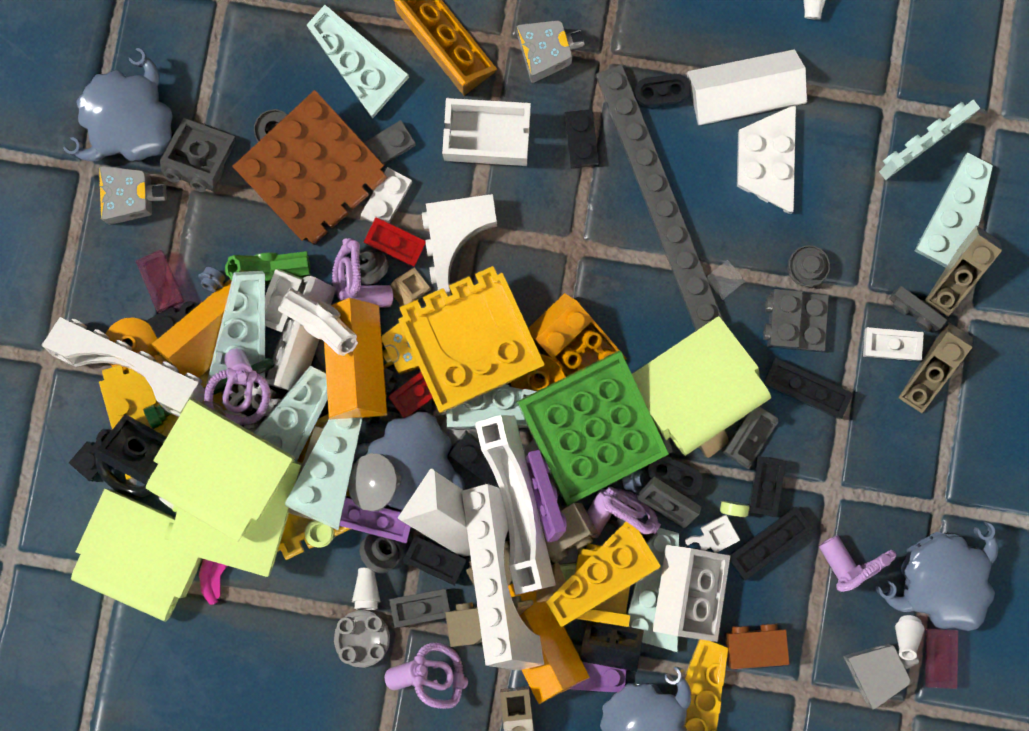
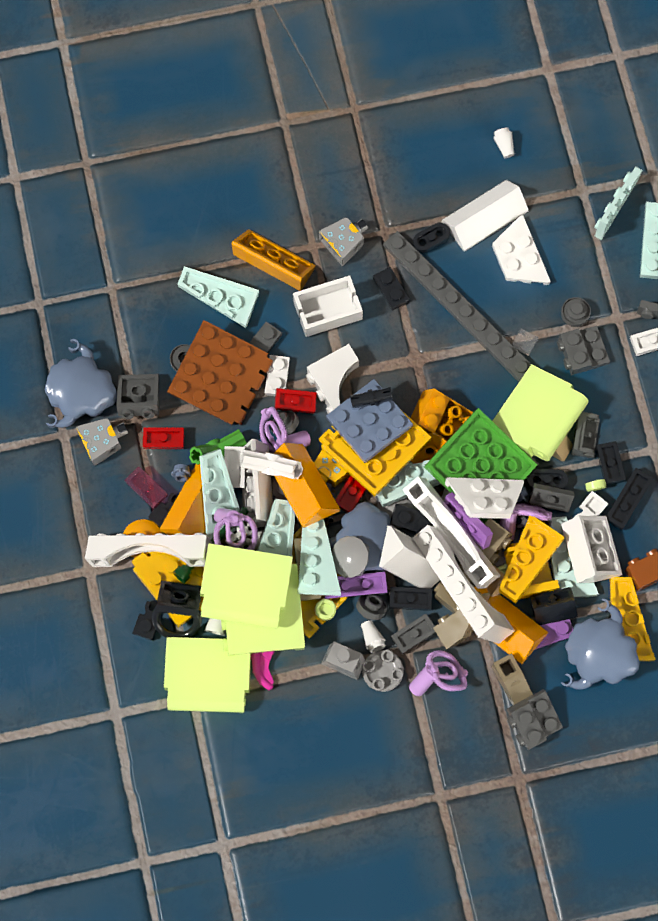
camera: 25 degrees left, 10 degrees down
(207, 224) = (163, 438): none -> red plate
(315, 607) = (344, 660): none -> light grey torso
(409, 287) = (317, 427): tan slope -> none
(472, 311) = (369, 427): none -> sand blue plate
(485, 283) = (371, 397): none -> black pin
(581, 475) = (486, 496): none -> white wing
(807, 388) = (610, 389): black plate -> none

